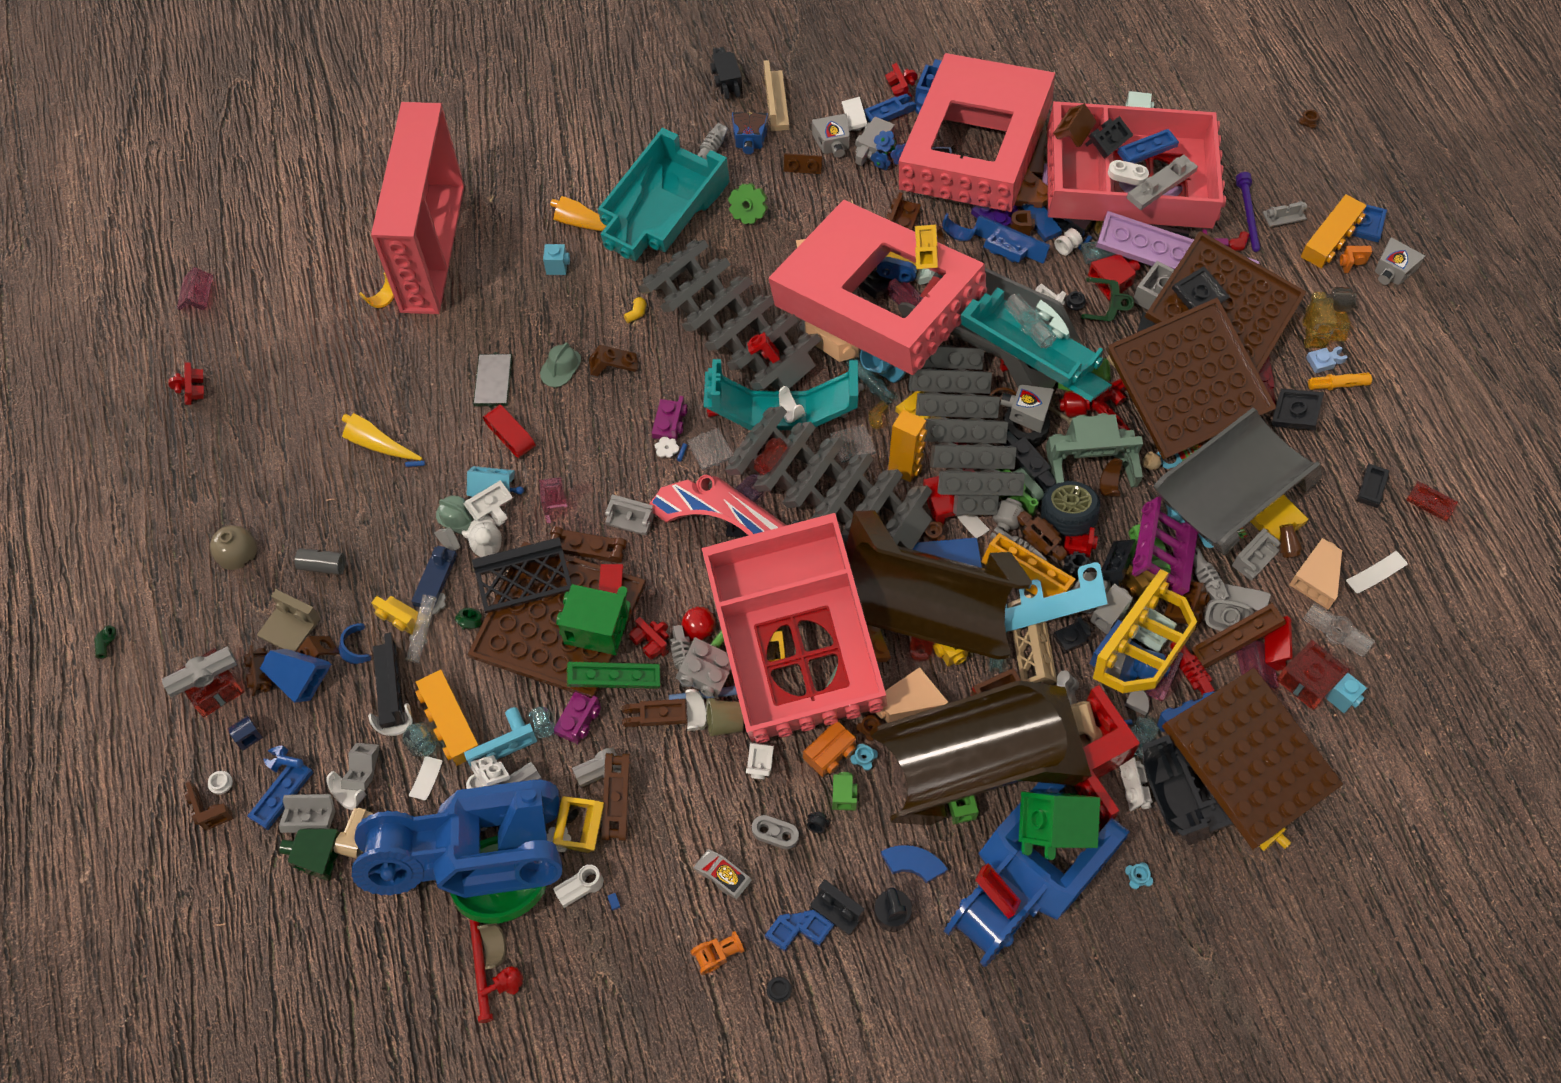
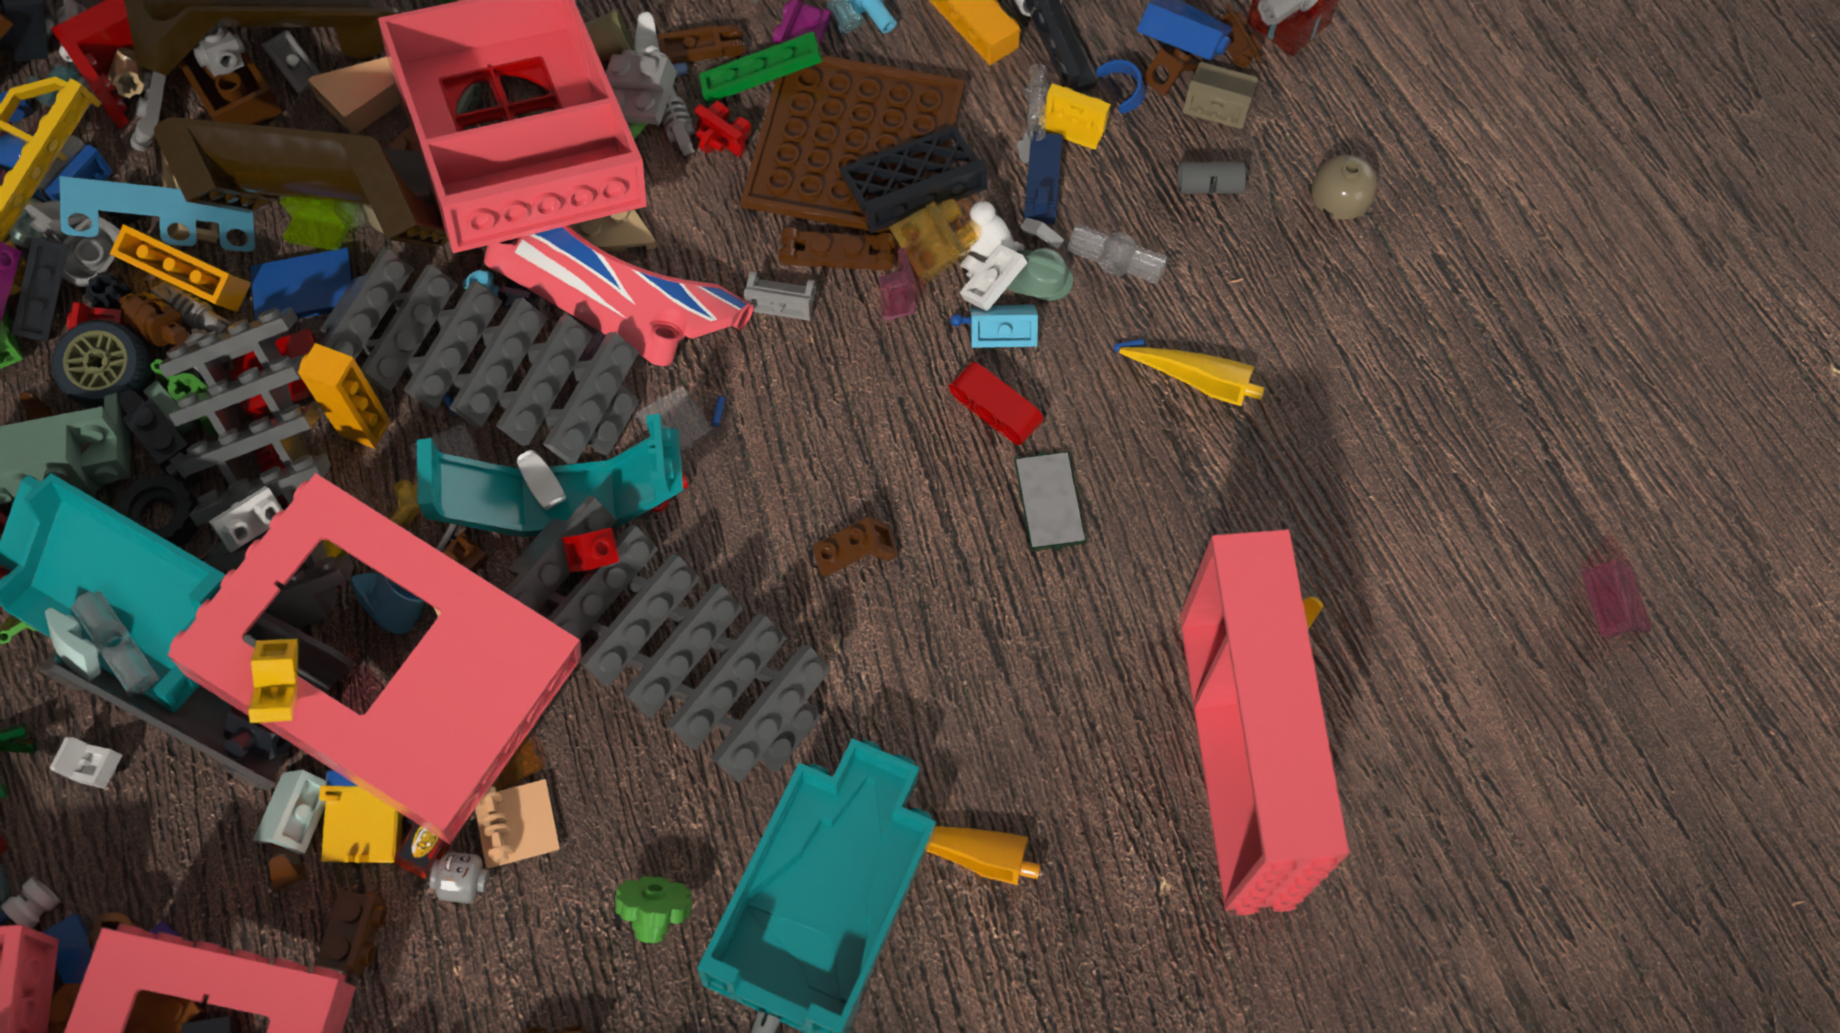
camera: 170 degrees right, 5 degrees up
(102, 640) = (1460, 53): dark green arm -> none
(190, 376) = (1540, 434): red hips -> none
(402, 516) = (1117, 254): none -> clear piece
(469, 618) = (977, 128): dark green hat -> none
(520, 526) = (938, 243): none -> clear yellow hips
(556, 259) = (998, 735): medium azure brick -> none
(560, 365) = (943, 539): sand green piece -> none
(594, 618) = (795, 109): green container -> none
(611, 577) = (786, 180): red tile -> none
(638, 310) = (832, 655): yellow arm -> none
(666, 447) = (742, 405): white plant -> none
(669, 419) = (744, 460): magenta bracket -> none
(698, 623) = (660, 159): red hair -> none
(770, 456) = (564, 359): clear red plate -> none
(938, 528) = (315, 318): reddish brown plate -> none
(956, 231) = (235, 911): blue helmet -> none
(963, 379) = (246, 519): none -> white hips
(1010, 242) = (149, 883): blue bracket -> none
(1029, 405) = (149, 507): light grey torso -> none
(1075, 301) = (36, 775): black plate -> none

